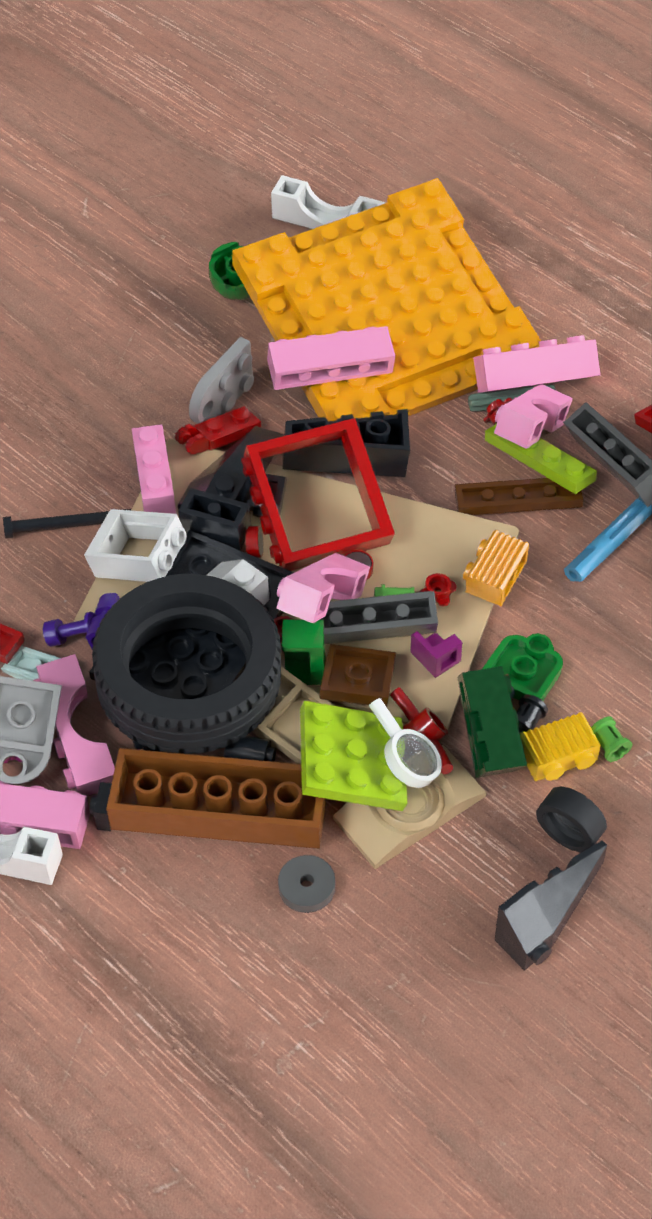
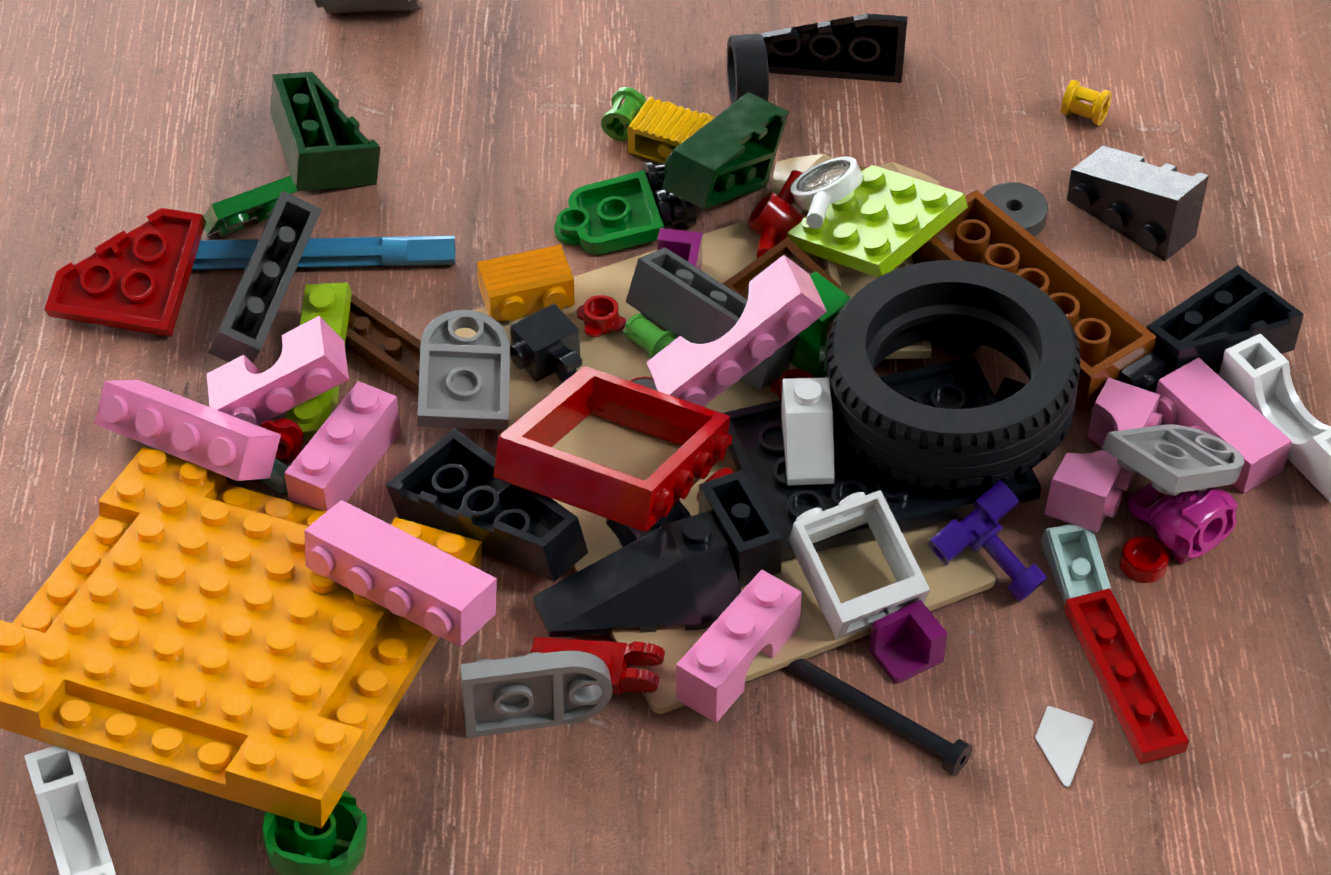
camera: 135 degrees left, 5 degrees down
(75, 563) = (908, 642): none -> magenta panel
(85, 876) = (1222, 317): none -> black wedge
(229, 941) = (1139, 199): none -> black wedge
(349, 1014) = (1096, 111): none -> yellow bush
(436, 544) = (546, 344): none -> black brick
(453, 493) = (464, 378): none -> light grey plate
(461, 425) = (344, 448): none -> bright pink brick

